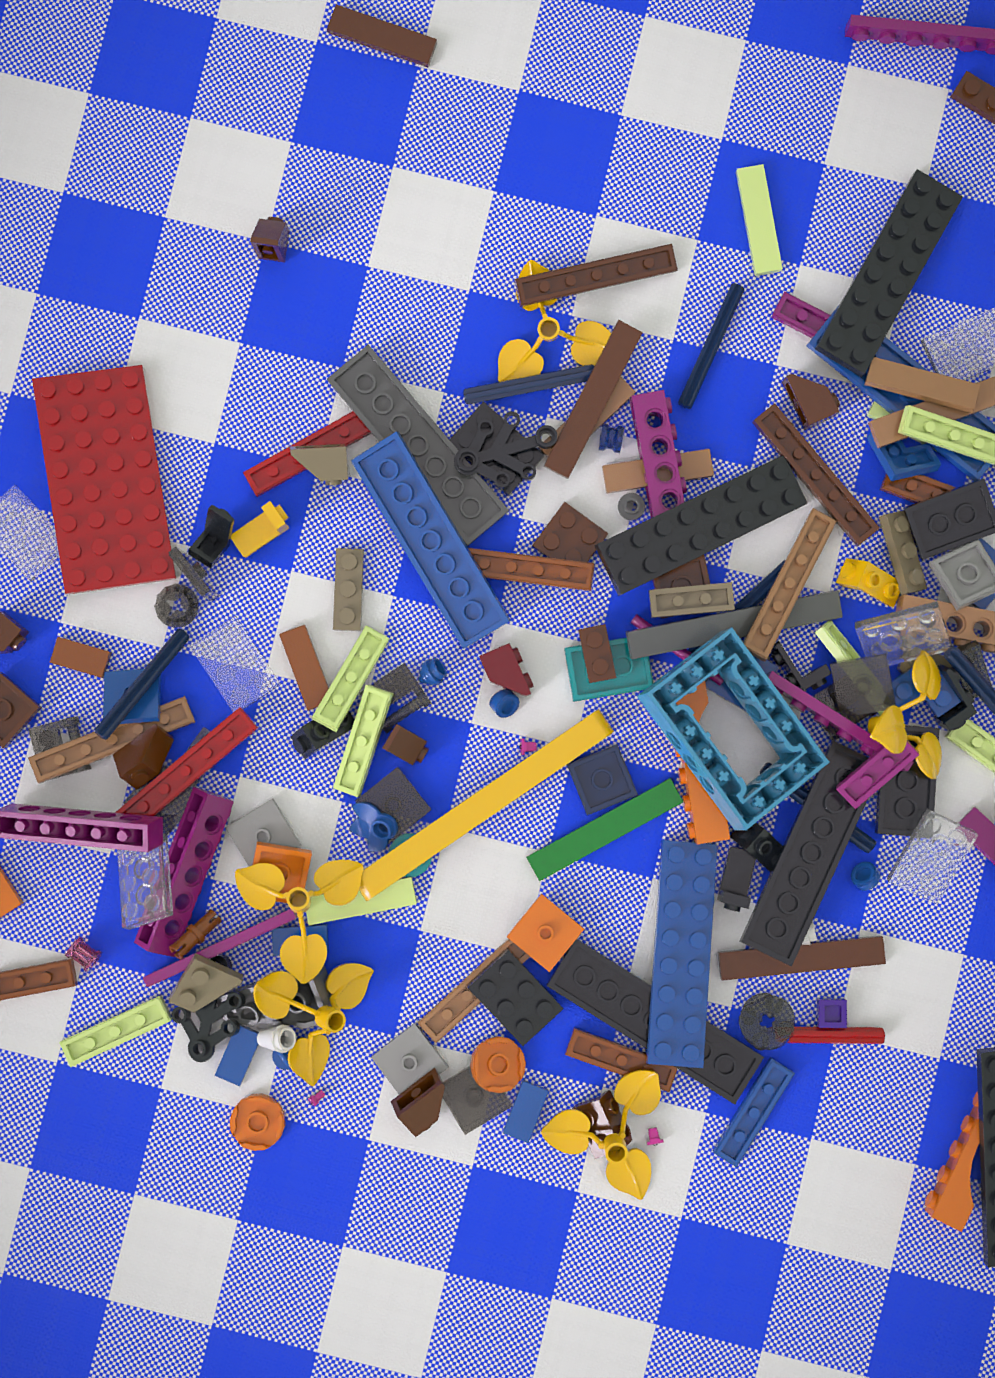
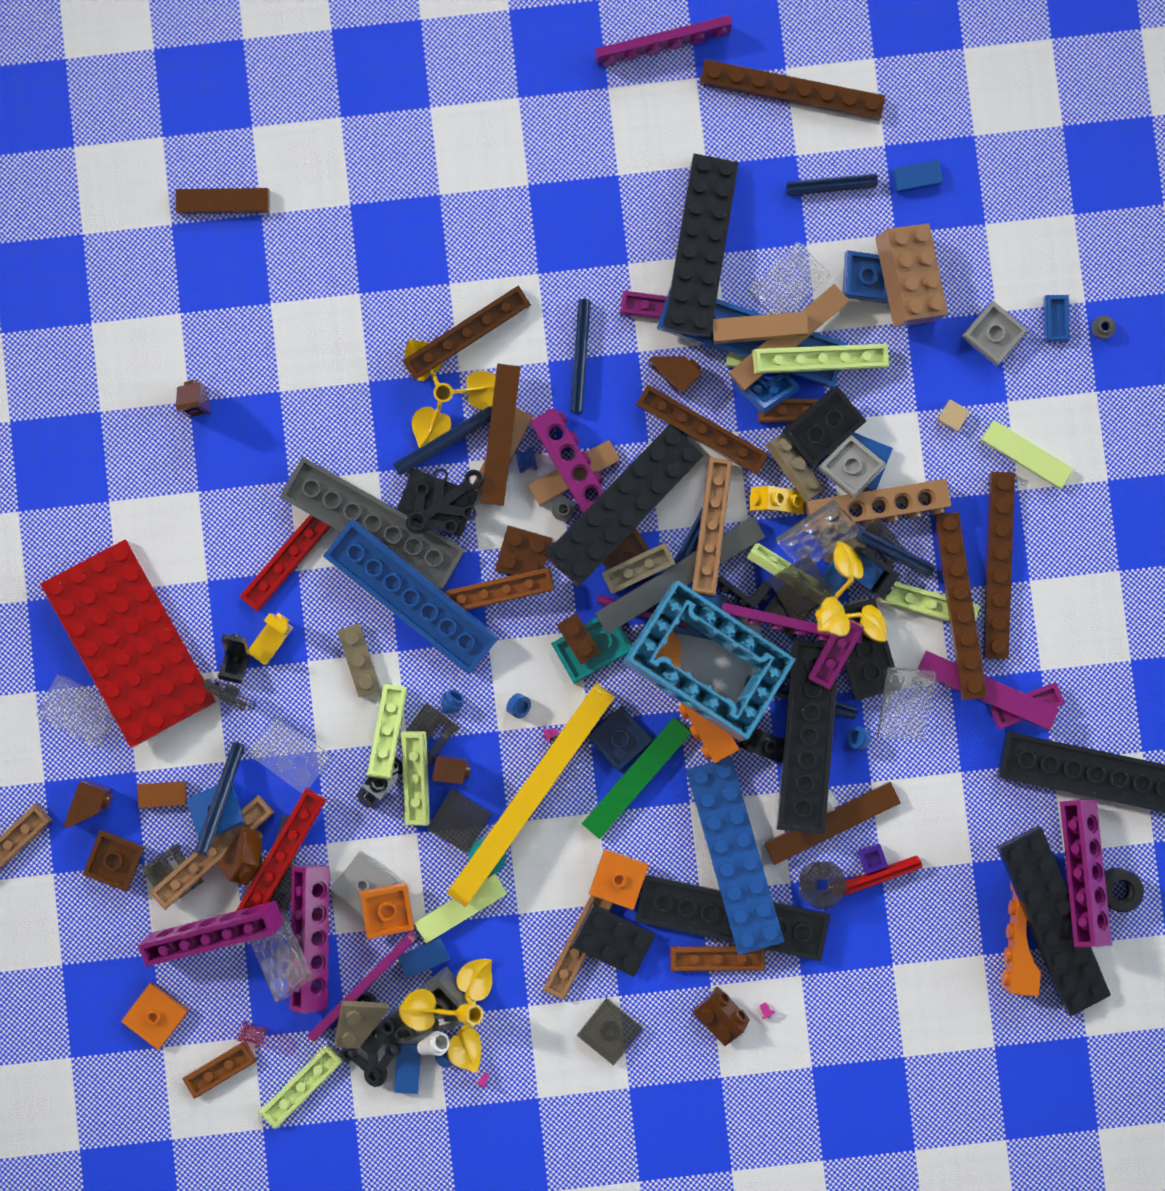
camera: 20 degrees left, 0 degrees up
(188, 601) = (233, 717): clear smoke gear -> none
(195, 934) = (337, 984): dark orange pin -> none
(257, 1122) = (443, 1117): orange tile -> none
(262, 883) = (376, 924): yellow plant -> none
(305, 666) = (346, 734): dark orange tile -> none
(323, 461) = (301, 564): dark tan slope -> none
(371, 826) = (449, 844): blue plate -> none
(408, 1058) = (547, 1023): light grey plate -> none
(420, 1103) = (568, 1054): reddish brown slope -> none
(497, 1064) = (619, 999): orange tile -> none
(504, 669) = (508, 679): dark red slope -> none
(525, 1111) = (655, 1028): blue tile -> none
(627, 1169) = (752, 1047): yellow plant -> none
(736, 879) = (757, 780): black bracket -> none
(753, 1112) = (838, 961): blue tile -> none
(759, 220) = (582, 240): yellowish green tile -> none

